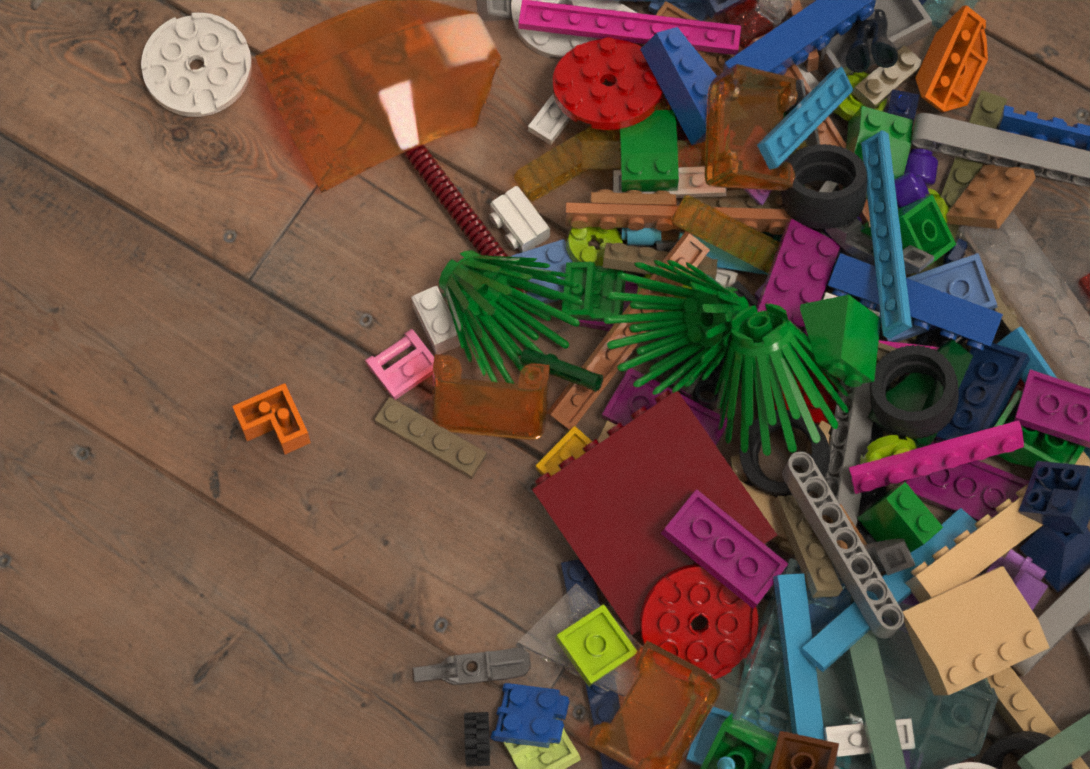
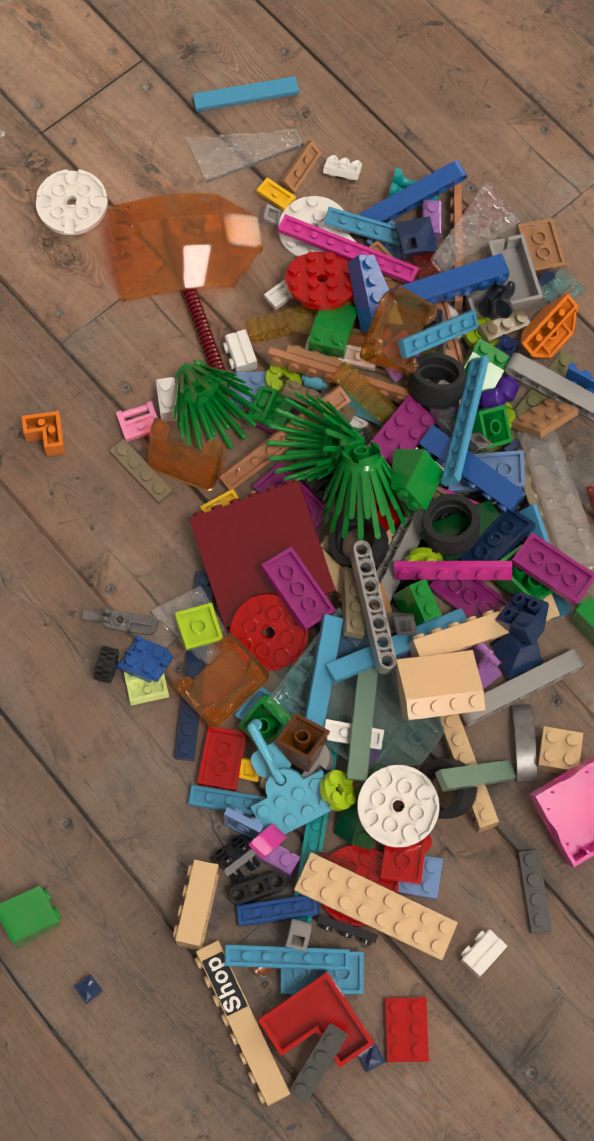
camera: 15 degrees right, 0 degrees up
(563, 369) = (235, 450): dark green pin -> none

